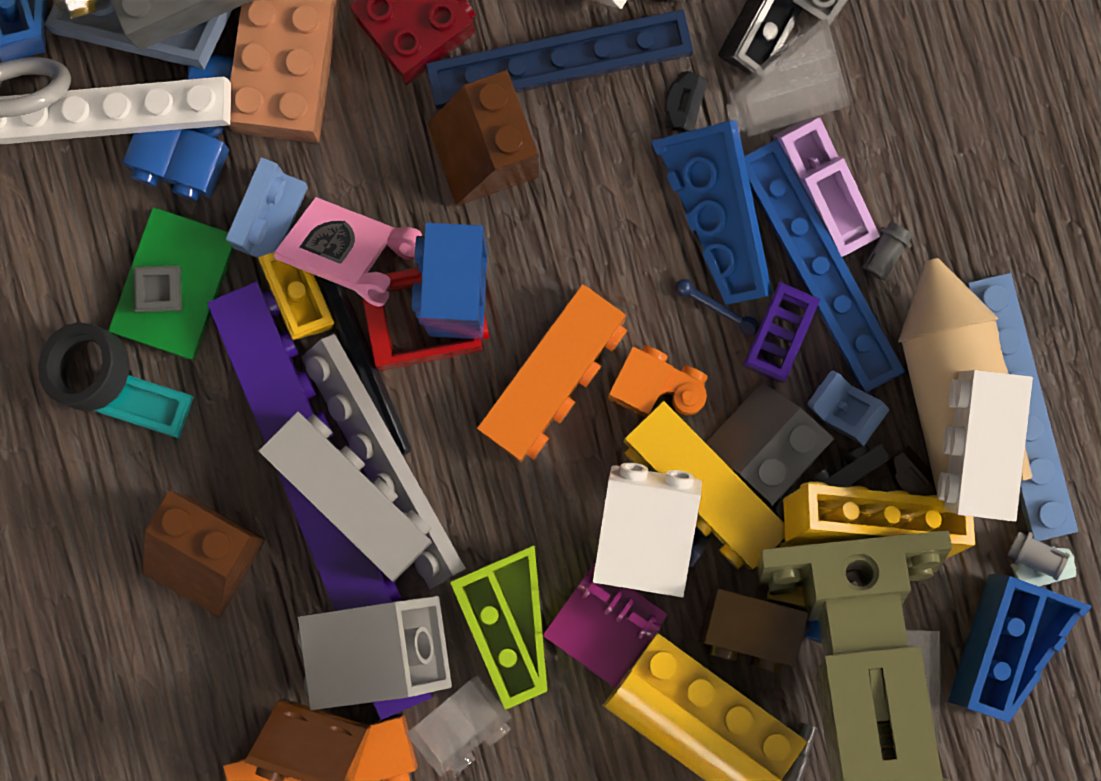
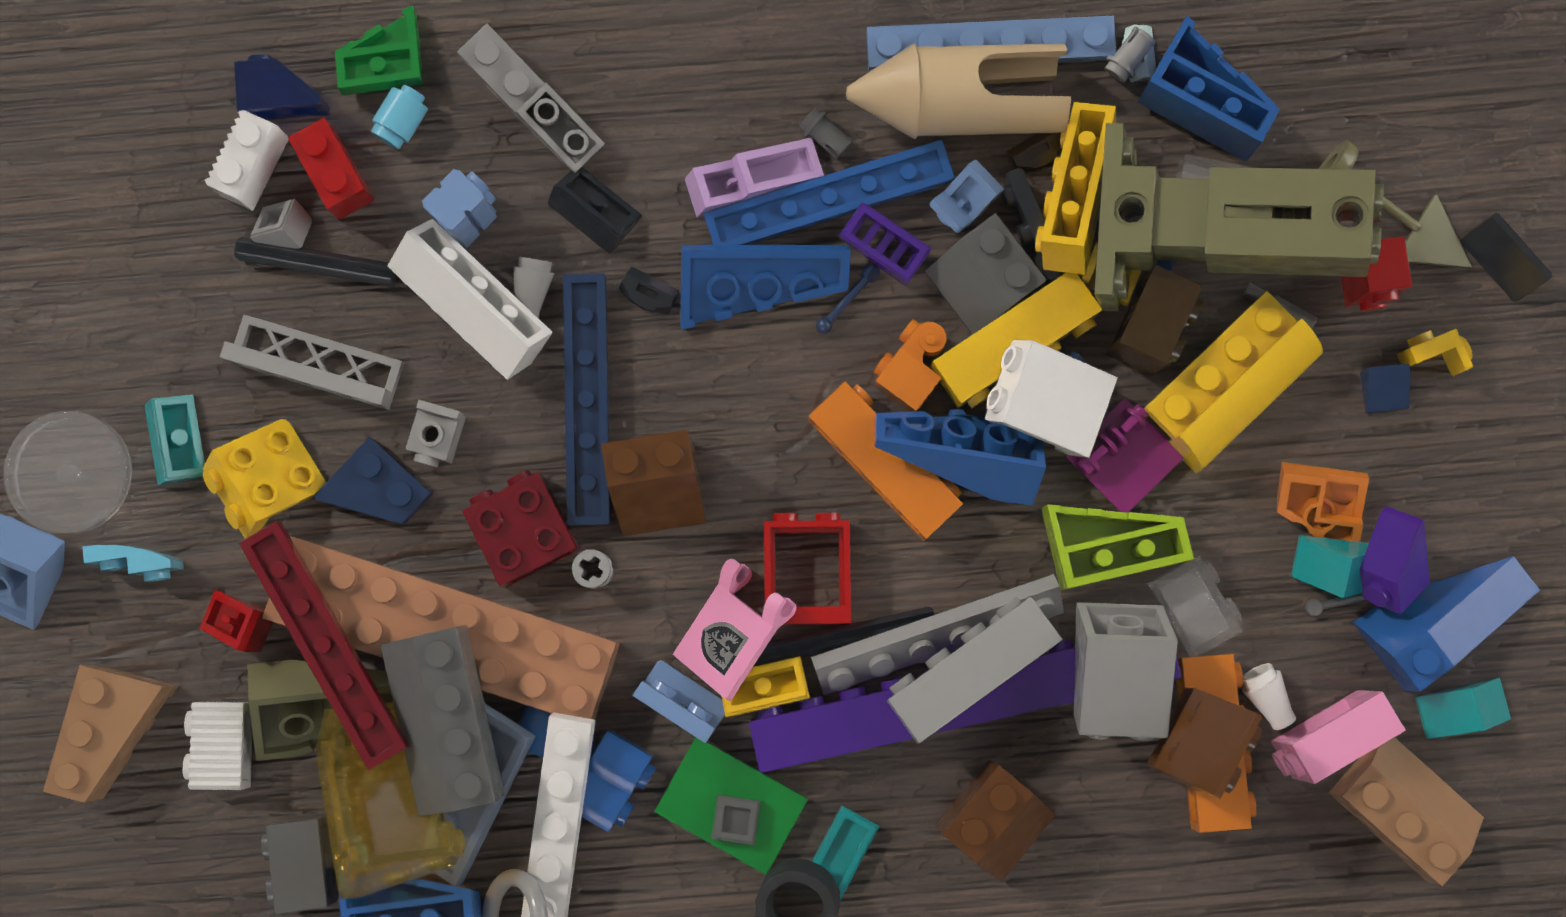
camera: 75 degrees left, 0 degrees up
(380, 86) = (591, 556): none -> light grey bush
(453, 280) = (794, 530): blue brick -> none
(575, 450) = (966, 451): none -> blue wedge
(792, 84) = (655, 189): clear slope -> none
(985, 444) = (1037, 73): white brick -> none

